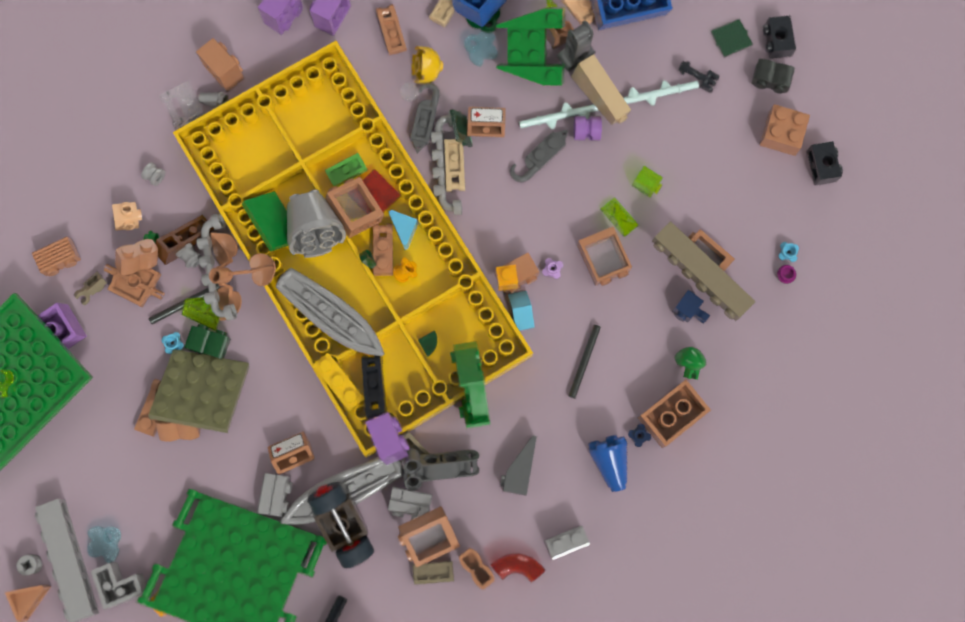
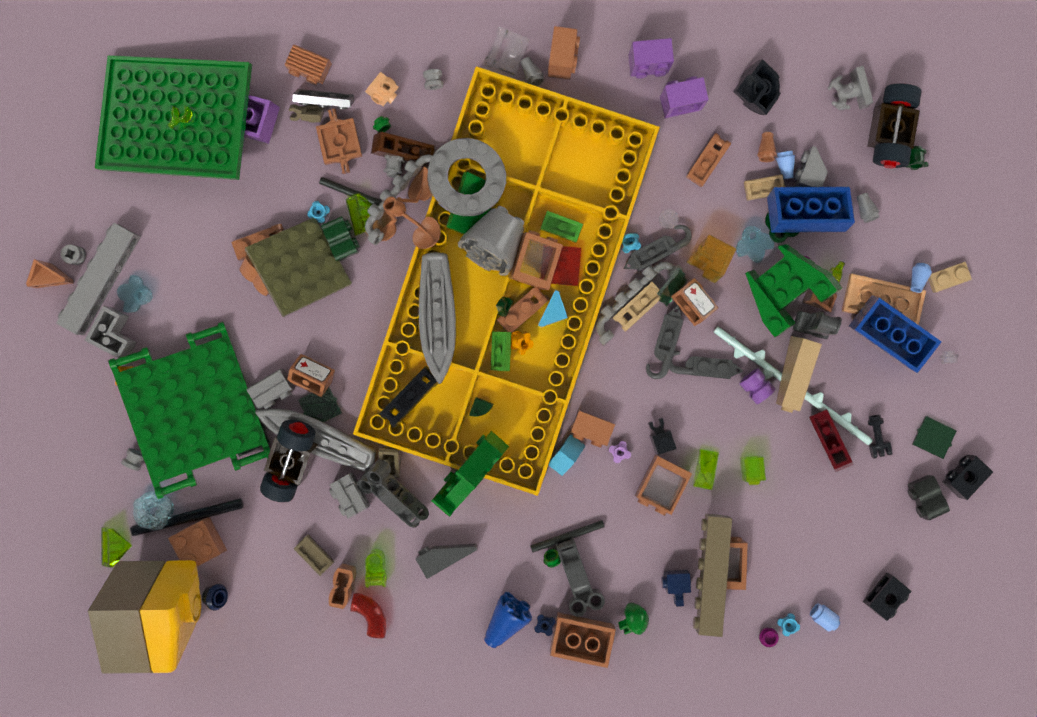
camera: 55 degrees right, 10 degrees up
(92, 266) = (323, 99): none -> plate
(134, 257) = (354, 126): nougat brick -> none
(251, 228) = (451, 199): none -> light grey plate
(321, 467) = (319, 407): none -> clear green piece
(338, 382) = (390, 367): yellow plate -> none
(387, 439) = (376, 445): medium lavender brick -> none
(399, 290) = (501, 351): none -> bright green plate
(402, 131) = (627, 239): none -> medium azure plate
(426, 65) = (701, 214): yellow cylinder -> none
(426, 537) = (334, 531): nougat window -> none
(464, 82) = (712, 257): none -> clear yellow plate
(487, 533) = (375, 573): none -> clear neon green piece
(499, 166) = (667, 342): none -> dark grey plate
(506, 277) = (579, 427): light orange brick -> none
(566, 542) = (418, 636): light grey brick -> none
(569, 229) = (662, 439): none -> black brick
(591, 386) = (551, 558): none -> green plate
(622, 379) = (577, 578): none -> dark grey piece
(673, 109) = (831, 440): none -> dark red slope
(784, 130) = (889, 543): nougat brick -> none
(804, 220) = (825, 617): none -> light blue brick

